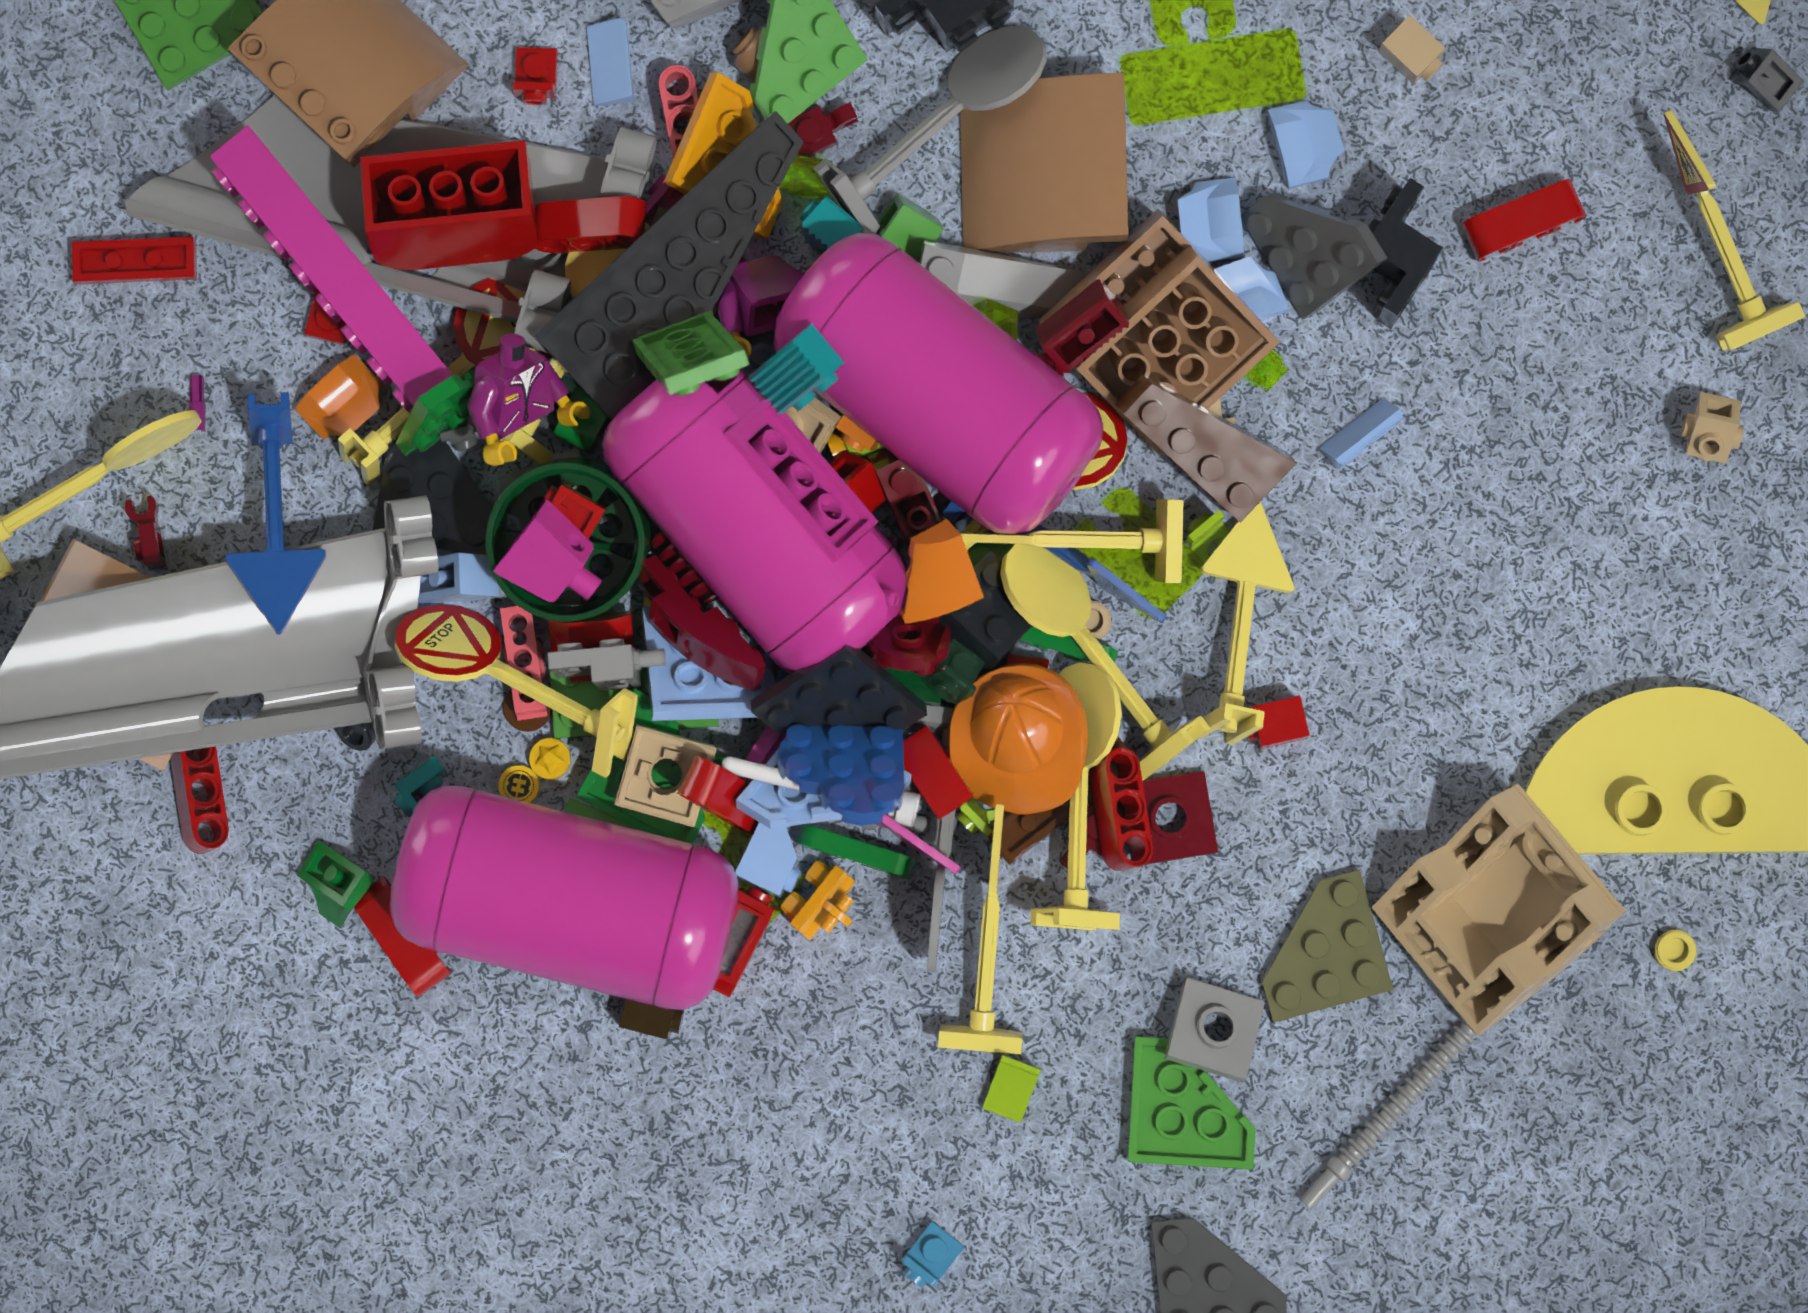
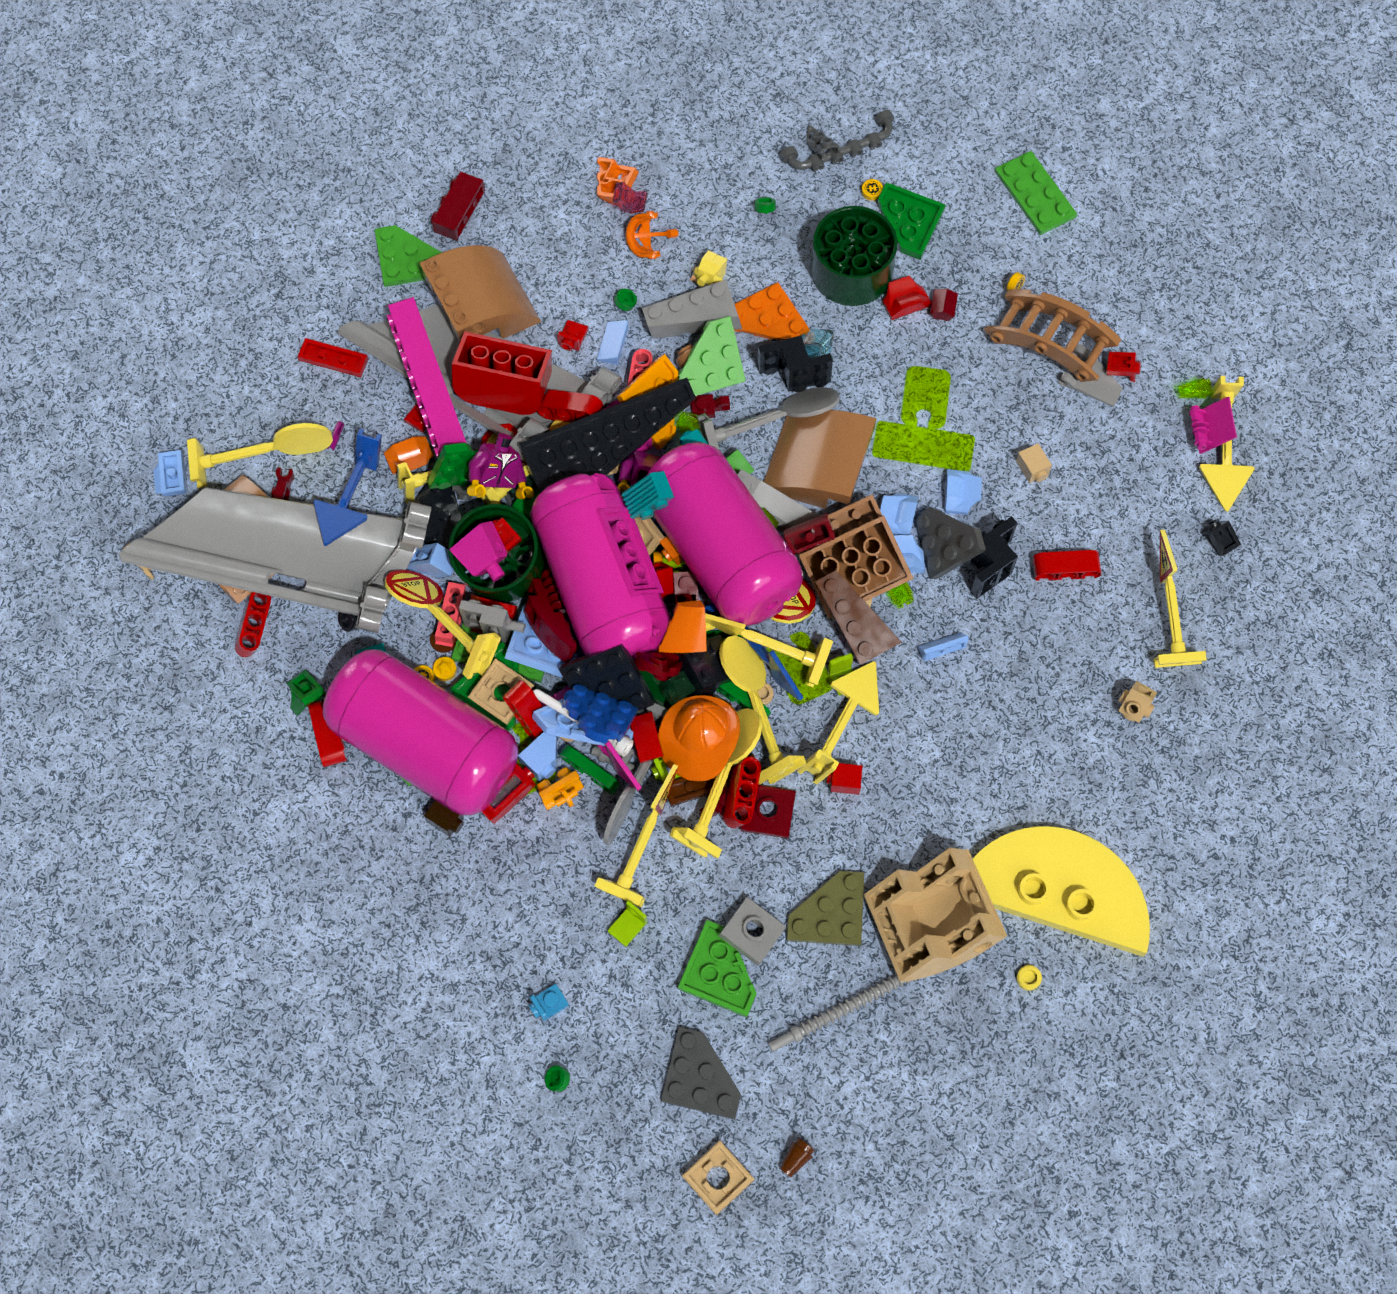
camera: 10 degrees right, 15 degrees down
(691, 353) = (586, 470): bright green plate -> none

